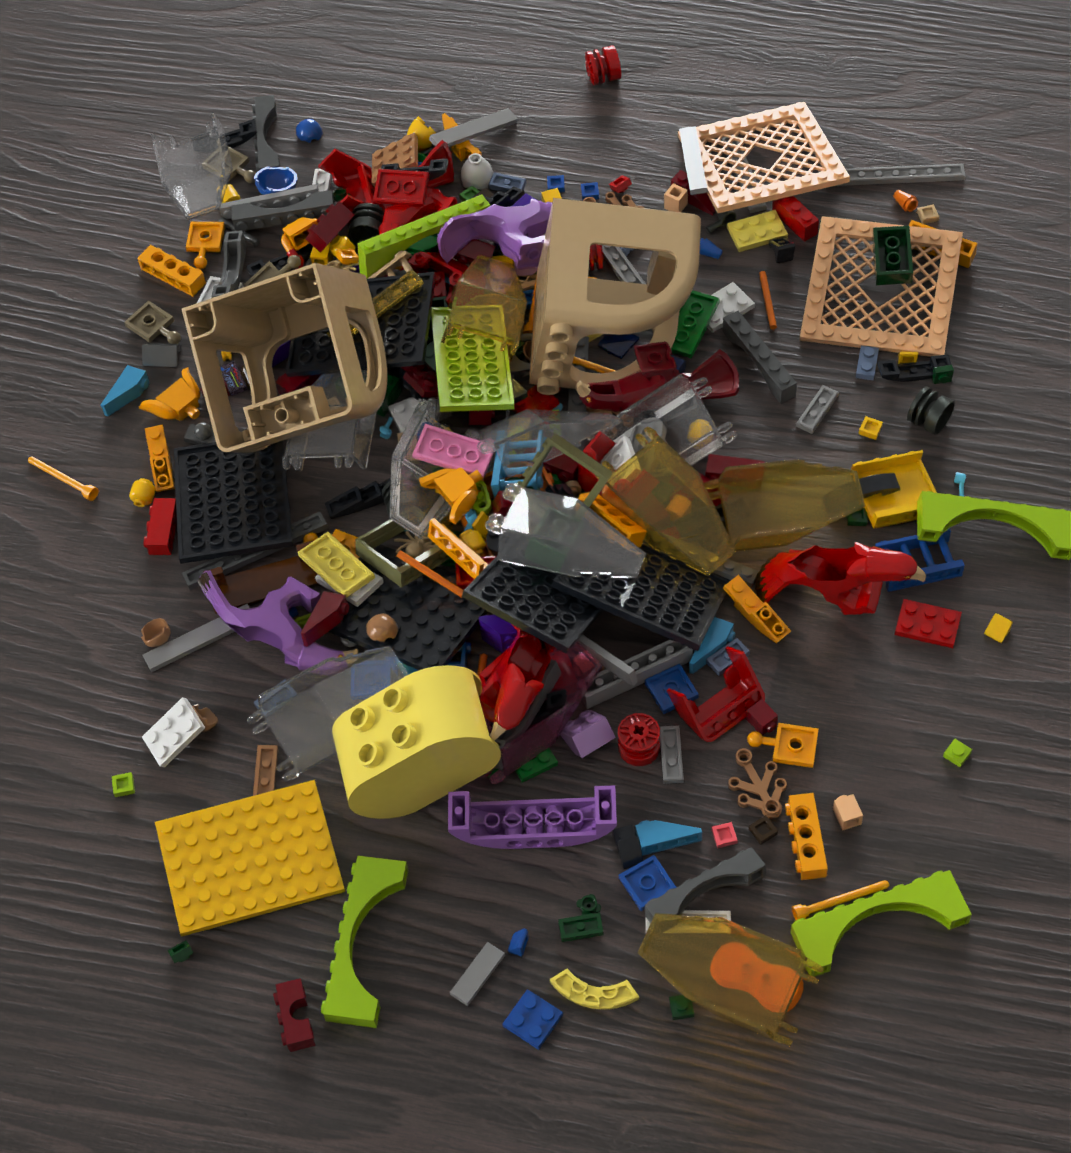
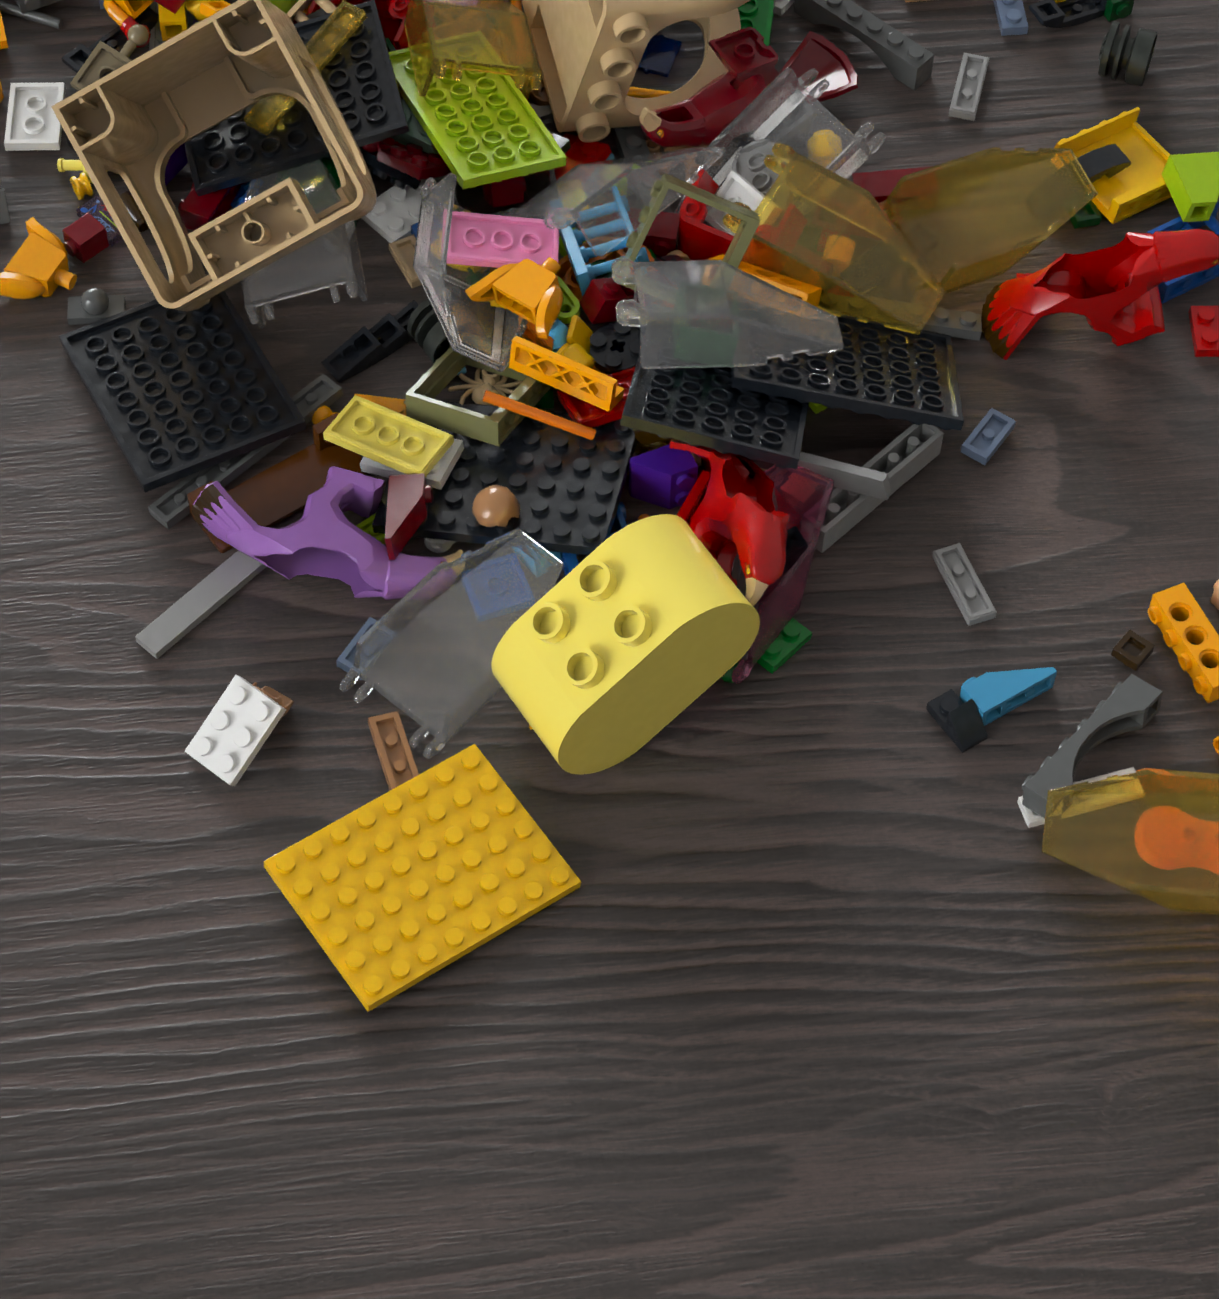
camera: 25 degrees left, 0 degrees up
(123, 784) = (185, 824): lime plate -> none
(142, 492) = (37, 407): yellow head -> none
(155, 633) = (145, 599): medium nougat hair -> none
(159, 458) = (43, 355): light orange slope -> none
(161, 526) = (87, 449): red brick -> none
(180, 952) = (376, 1033): dark green plate -> none
(234, 257) = (41, 62): dark grey arch -> none
(297, 1033) = (596, 1096): dark red arch -> none
(346, 997) = (651, 1027): lime arch -> none
(385, 431) = (370, 245): medium azure hand -> none
(477, 974) = (820, 945): light grey tile -> none
(518, 942) = (861, 886): blue slope -> none
(532, 822) = (826, 715): medium lavender slope -> none
(532, 1019) = (924, 984): blue plate -> none
(580, 927) = (939, 843): dark green plate -> none
(587, 733) = (840, 583): lavender slope -> none
(588, 899) = (938, 804): dark green plate -> none
(593, 997) = (995, 931): light yellow tile -> none
(639, 739) = (917, 572): red wheel -> none
(646, 881) = (1005, 759): blue plate -> none
(672, 678) = (929, 496): blue plate -> none
(681, 1007) = (1120, 910): dark green plate -> none
(718, 636) = (973, 409): dark azure slope -> none
(724, 835) = (1083, 670): coral plate -> none
(725, 707) = (1018, 497): red windscreen -> none
(756, 611) = (1004, 370): light orange slope -> none
(758, 787) = (1100, 596): medium nougat plant -> none
(762, 717) = (1070, 504): dark red brick -> none
(785, 736) = (1115, 541): light orange plate -> none
(870, 428) = (1052, 95): yellow plate -> none
(960, 479) = (1199, 135): medium azure hand -> none

